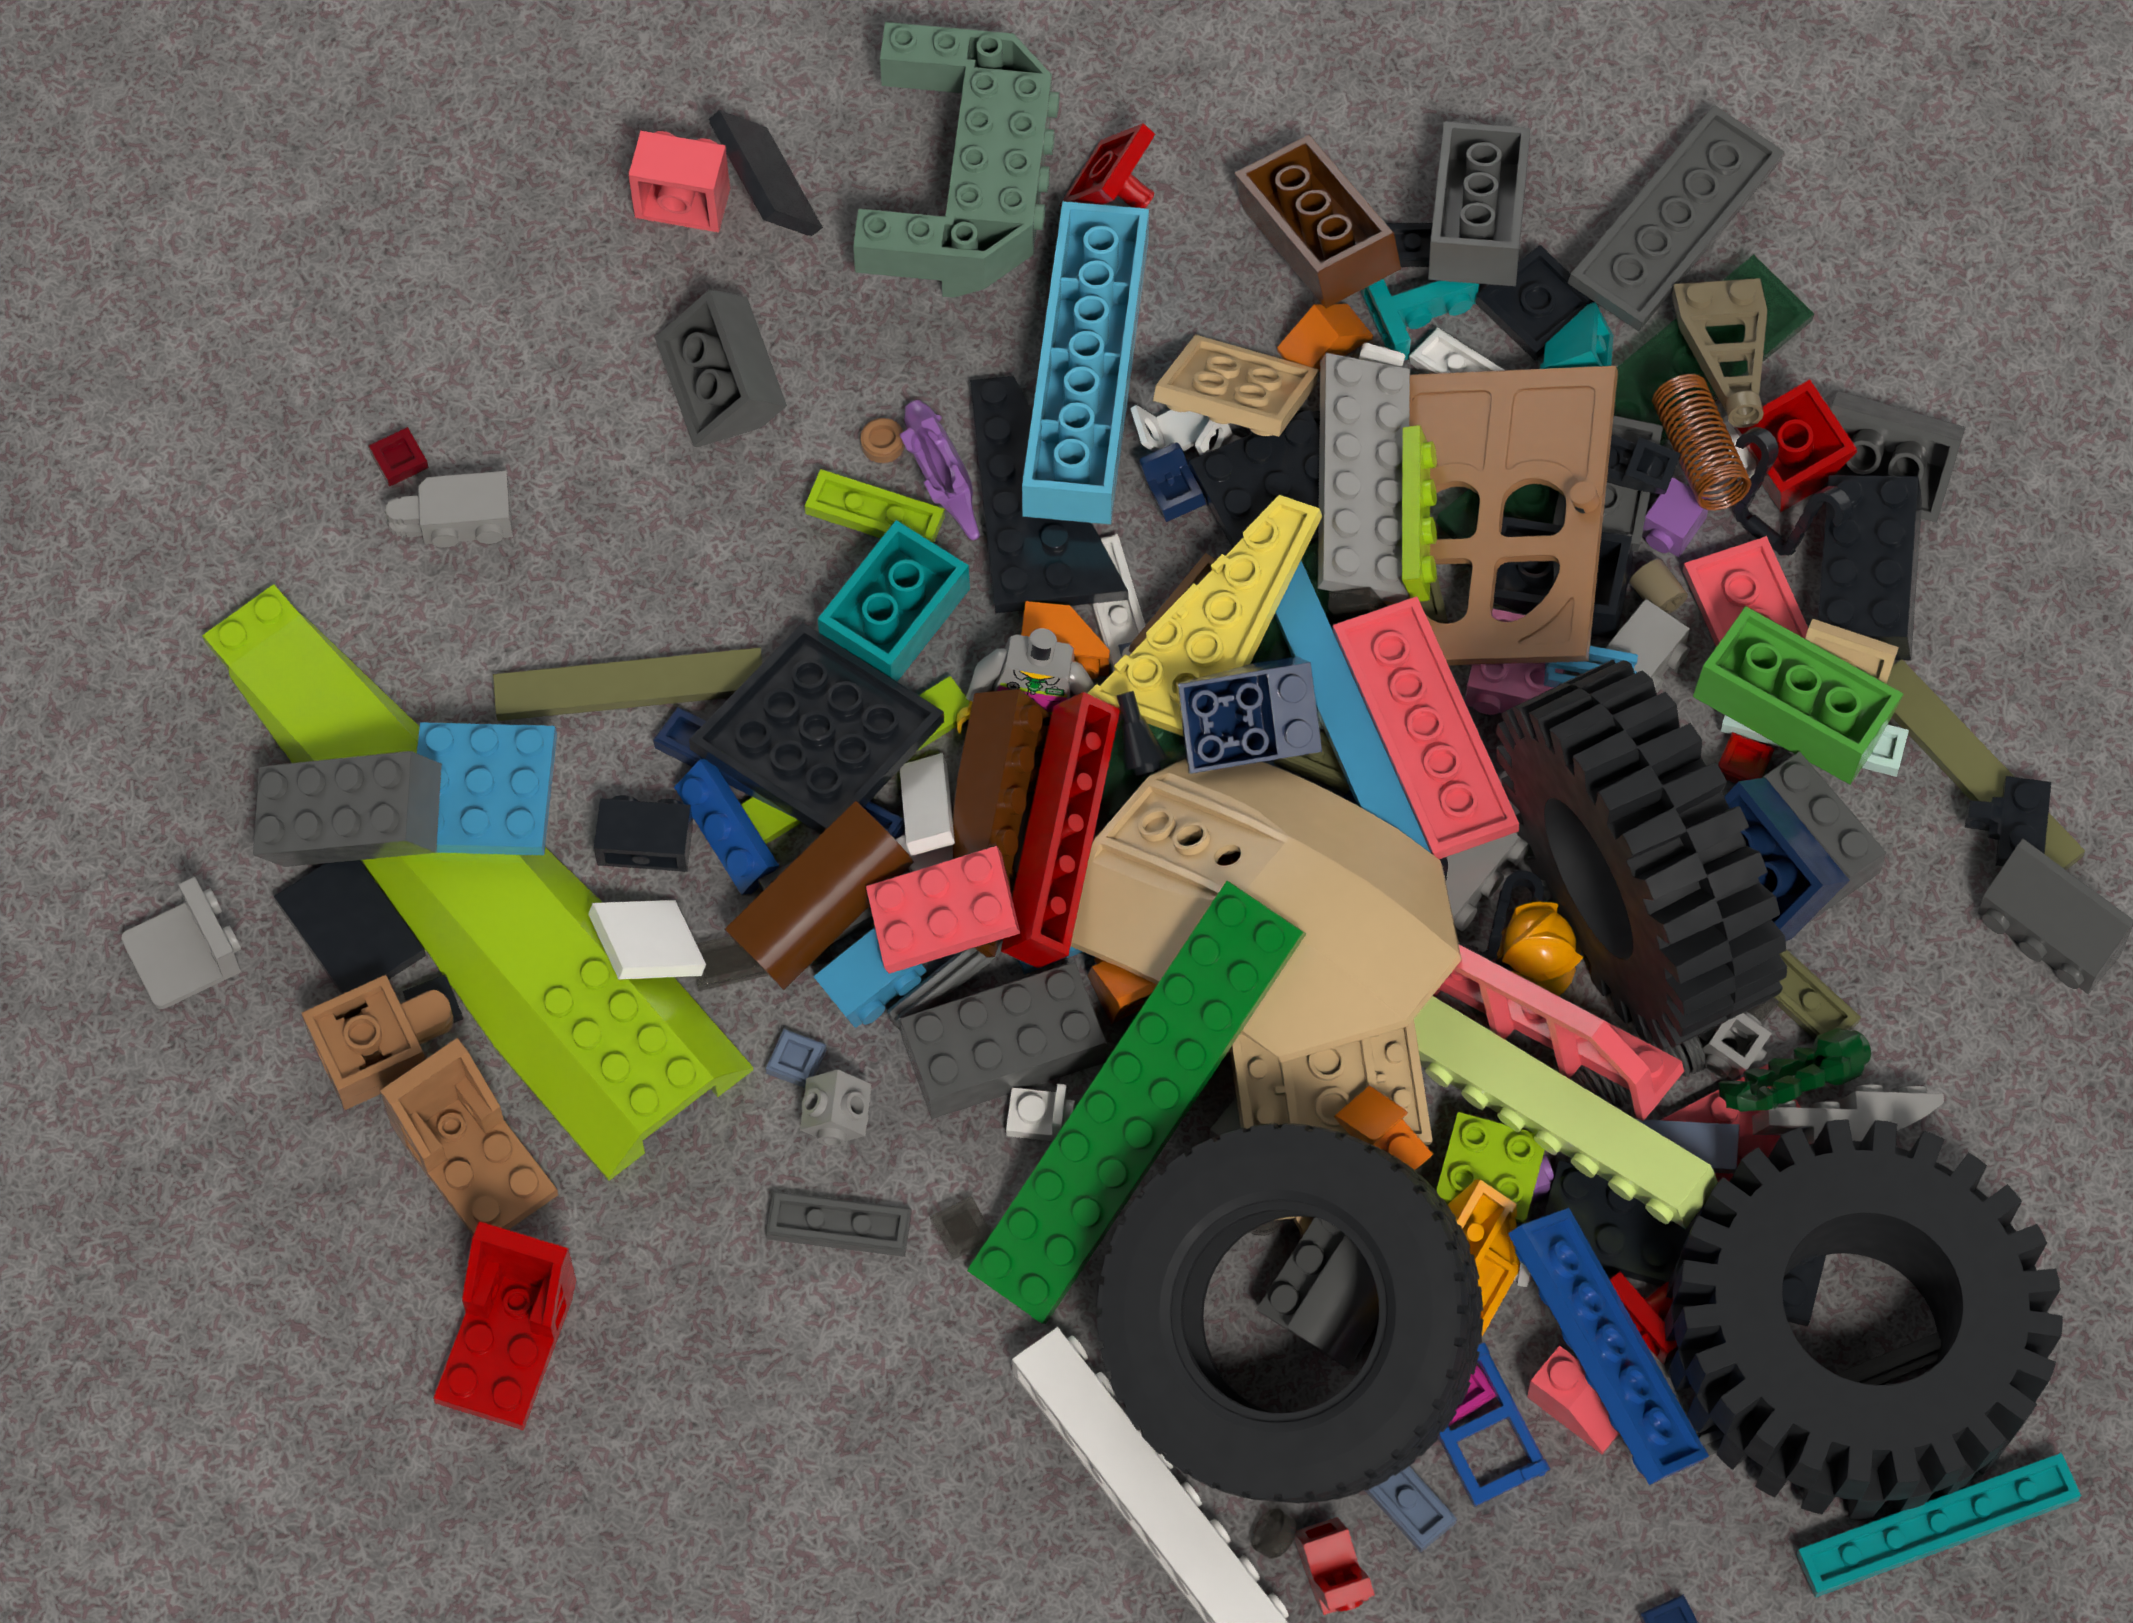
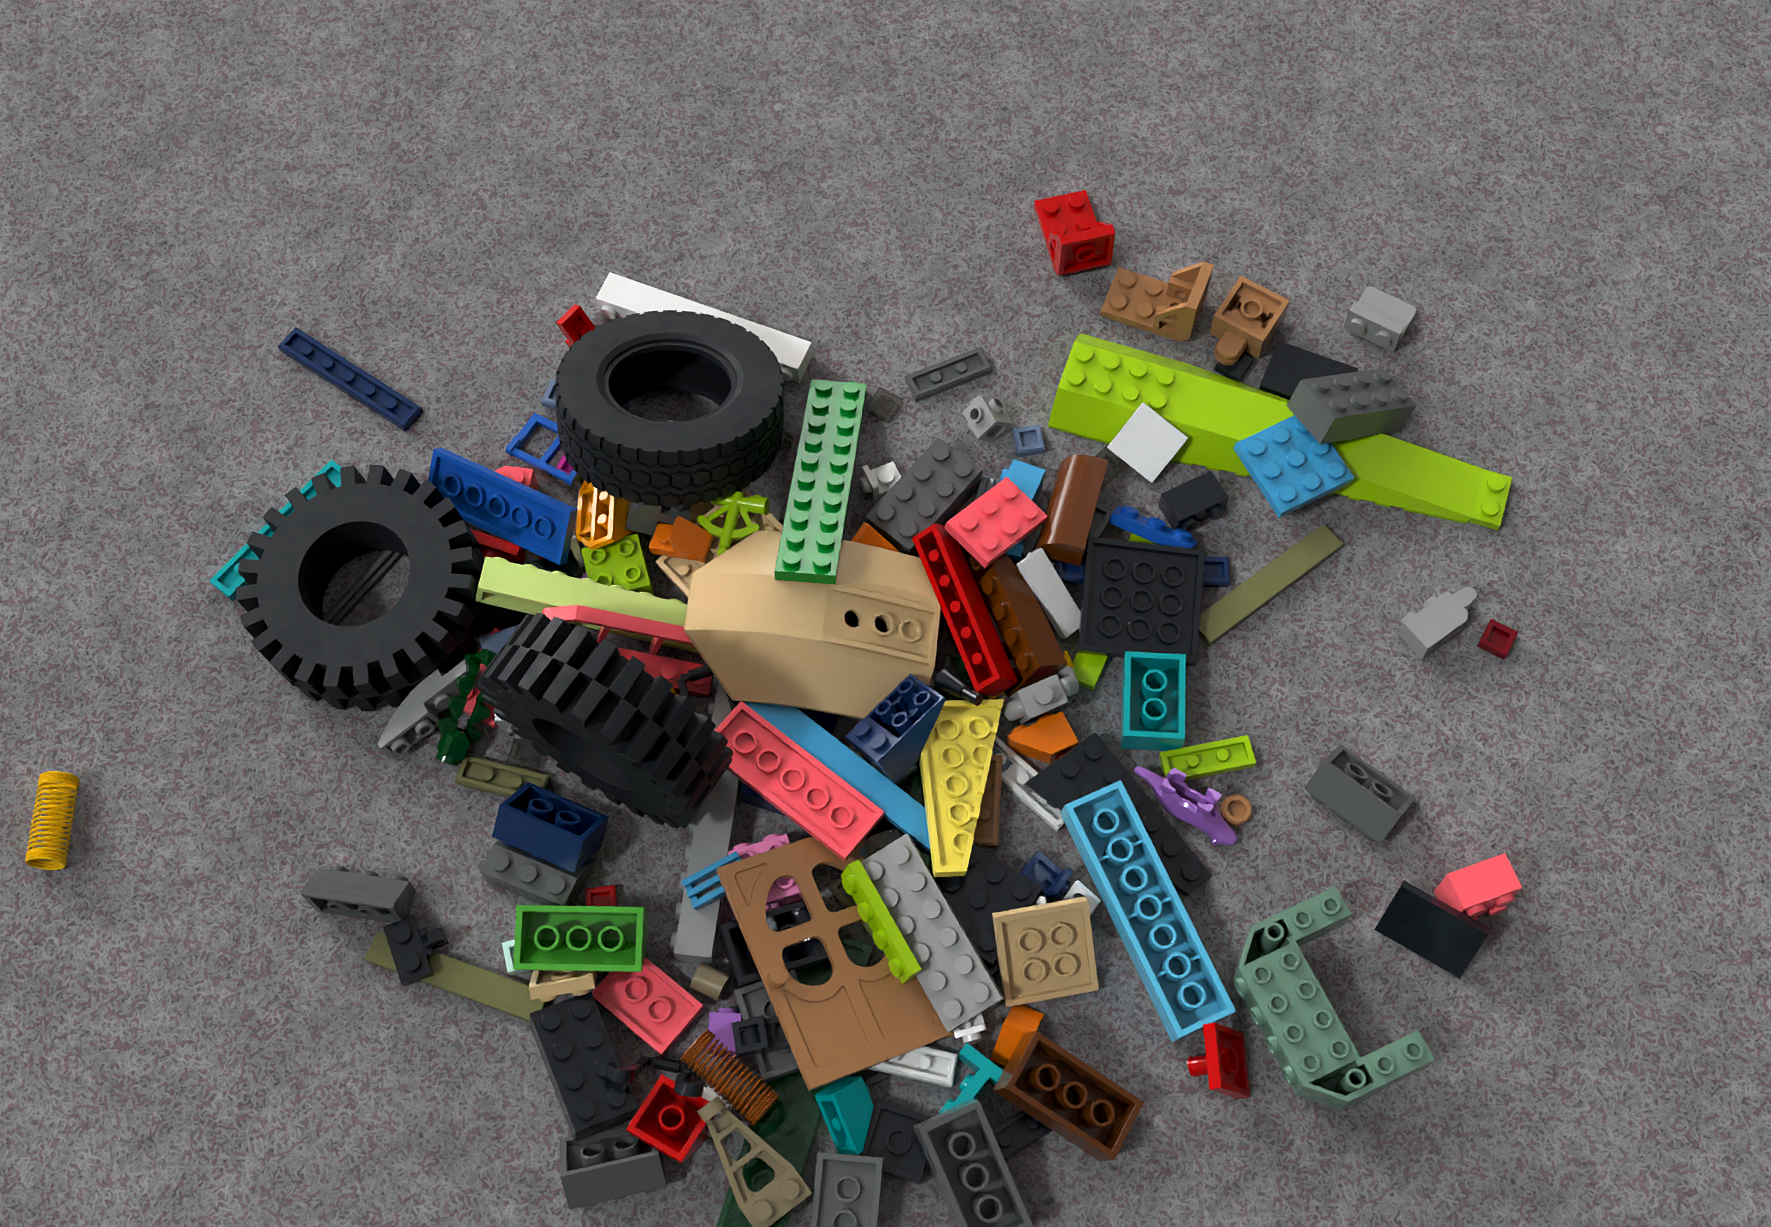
camera: 150 degrees right, 0 degrees up
(1255, 1109) = (735, 505): none -> lime piece

